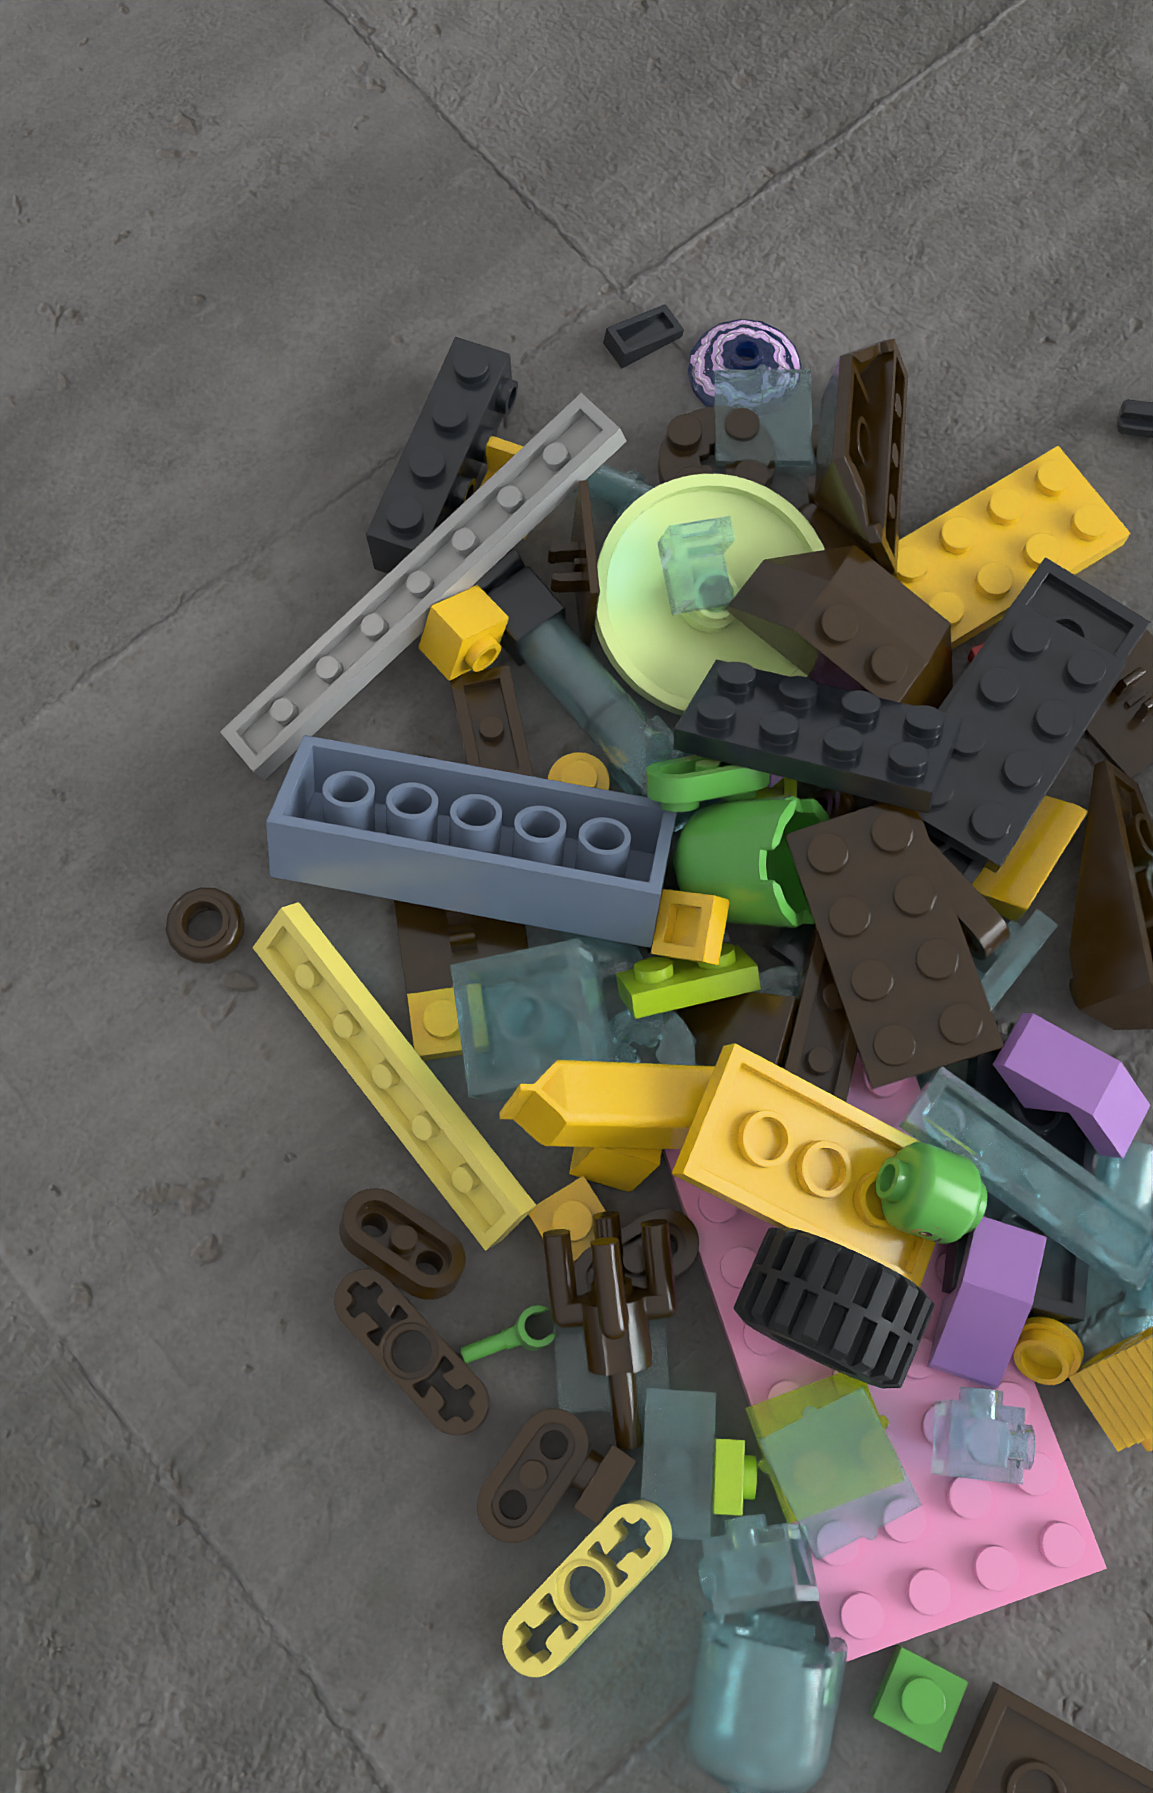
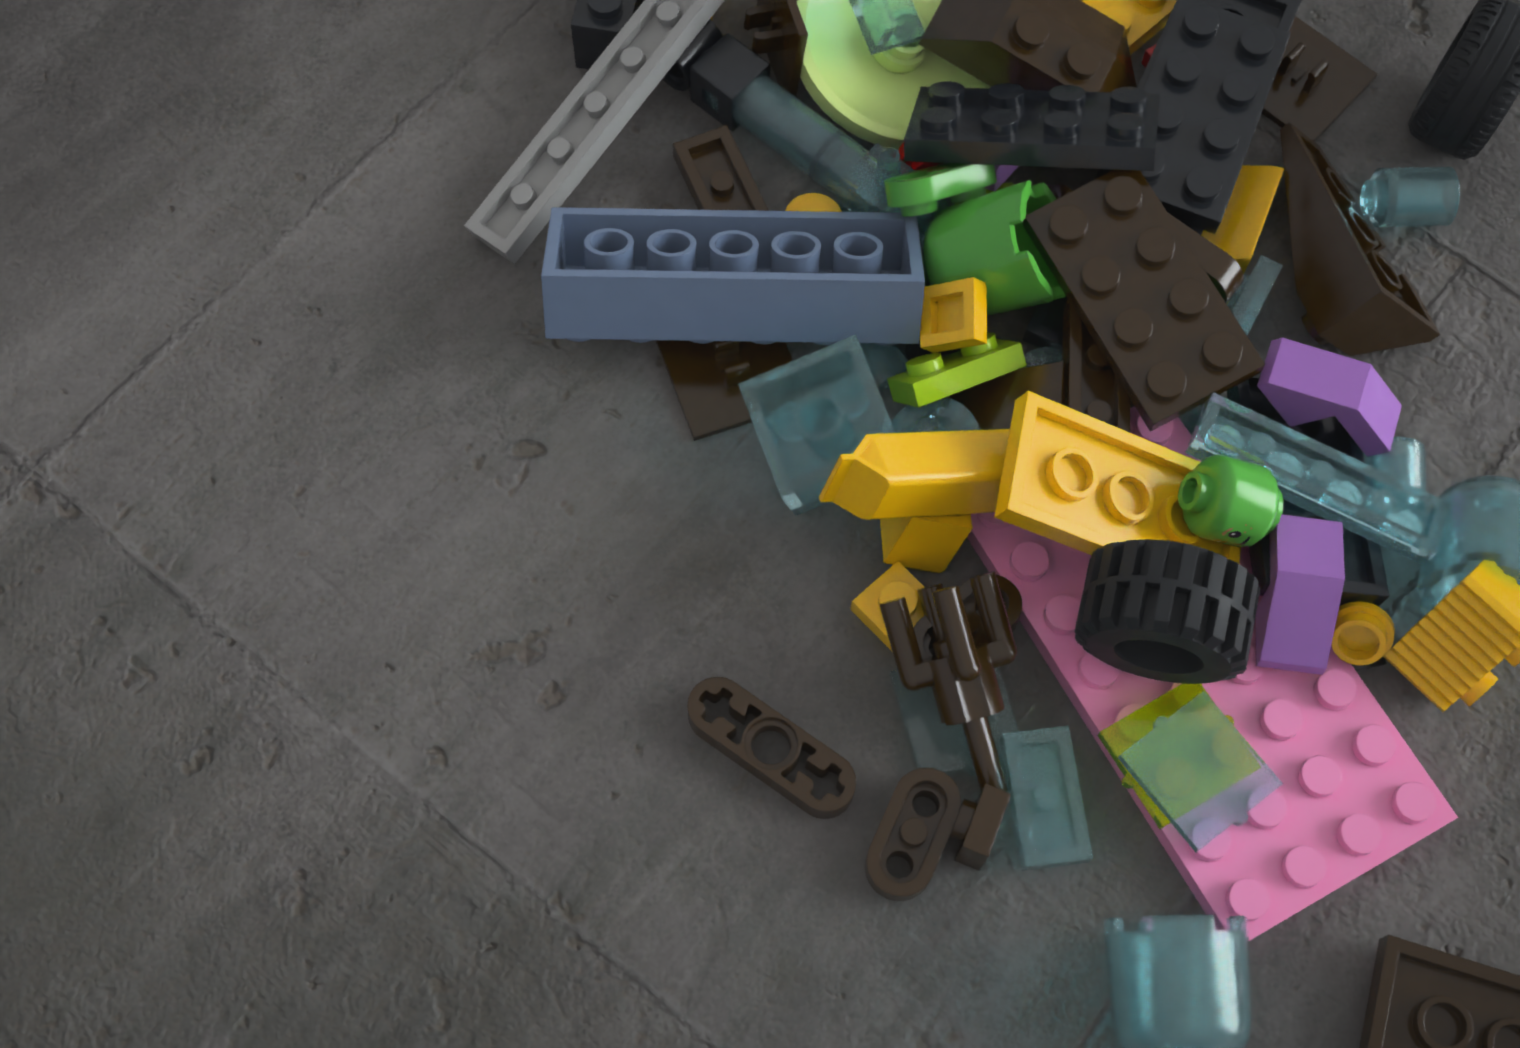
camera: 15 degrees left, 5 degrees down
(192, 904) = (484, 379): dark brown piece -> none
(393, 1076) = (699, 502): light yellow plate -> none
(406, 1241) = (741, 649): dark brown plate -> none
(435, 1024) = (732, 452): yellow plate -> none
(463, 633) = (680, 99): yellow plate -> none
(508, 1338) = (868, 715): bright green hand -> none
(538, 1609) = (946, 957): light yellow beam -> none
(732, 1477) = (1101, 796): lime plate -> none
(757, 1567) = (1143, 871): clear light blue brick -> none
(918, 1698) = (1315, 967): bright green plate -> none
(981, 1438) = (1323, 713): clear light blue brick -> none

